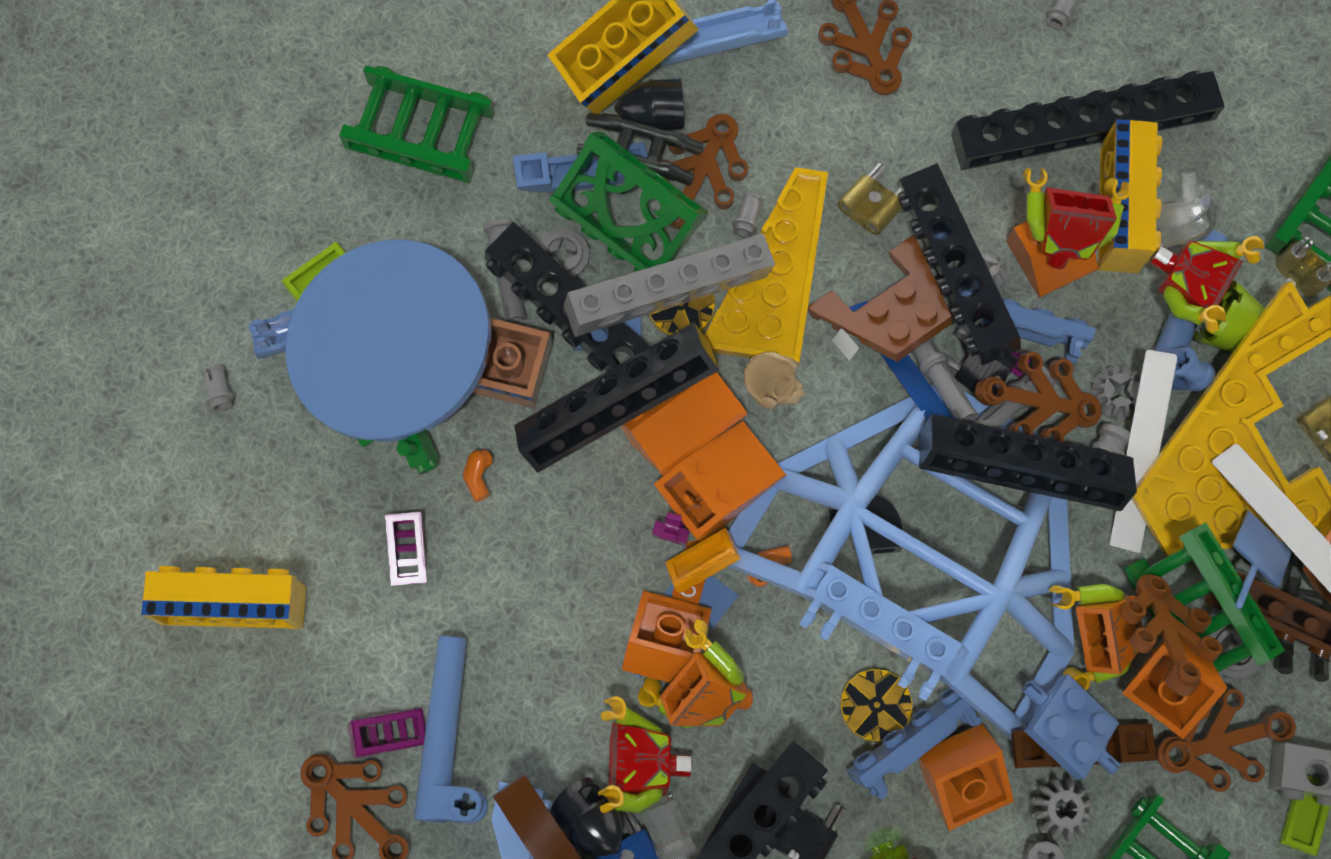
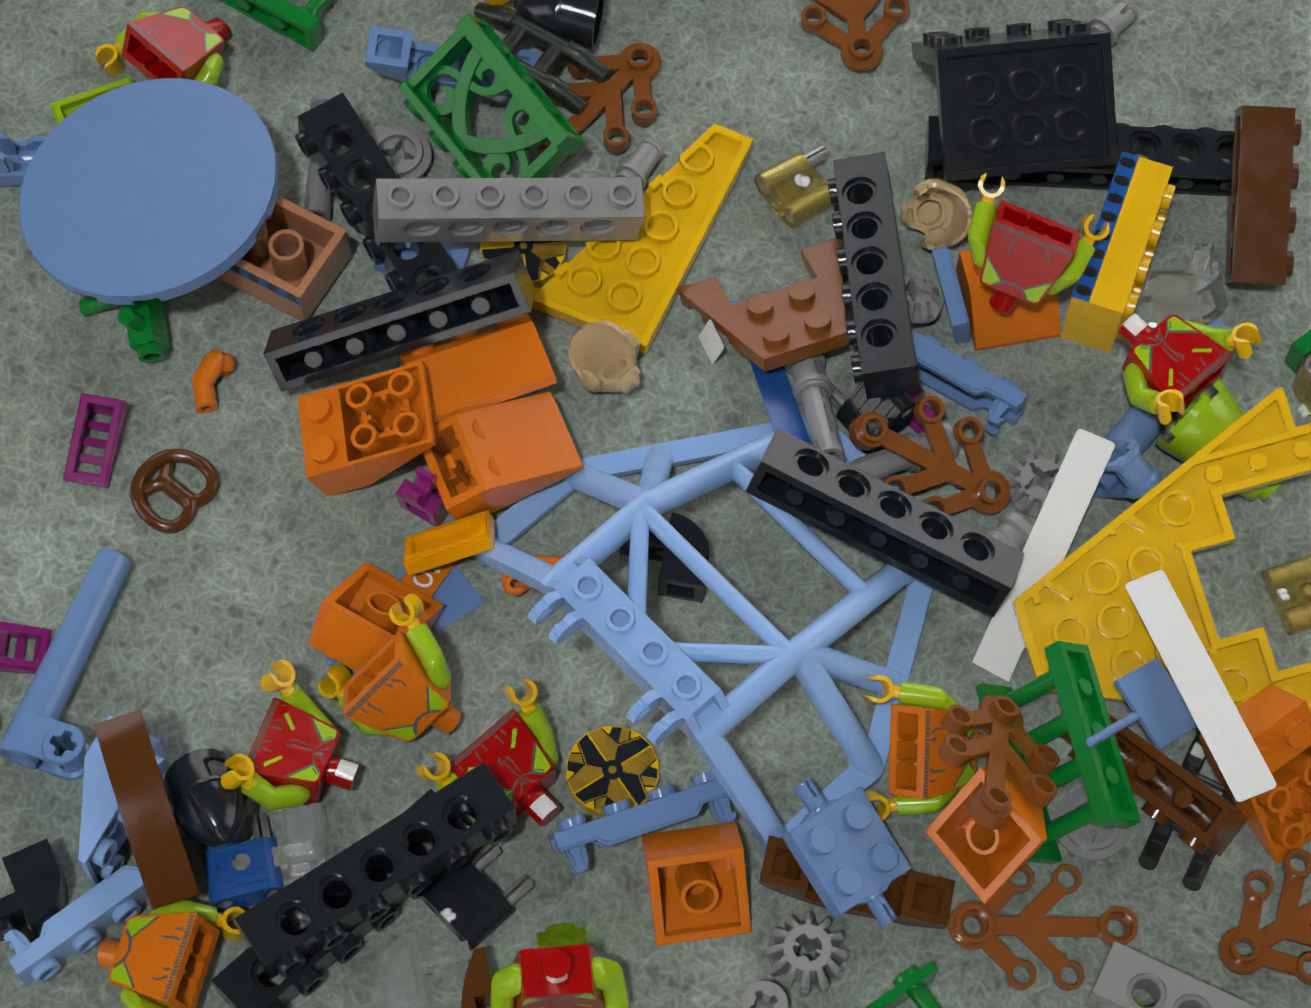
camera: 15 degrees right, 10 degrees down
(362, 212) = (168, 46): none -> red torso
(476, 569) = (172, 488): none -> reddish brown piece
(615, 487) = (365, 428): none -> orange slope
(802, 716) = (517, 752): none -> torso
(986, 197) = (938, 212): none -> tan hair
(1013, 260) = (952, 295): none -> medium blue tile
(1025, 88) = (1023, 98): none -> black bracket
(1223, 125) = (1261, 196): none -> reddish brown brick

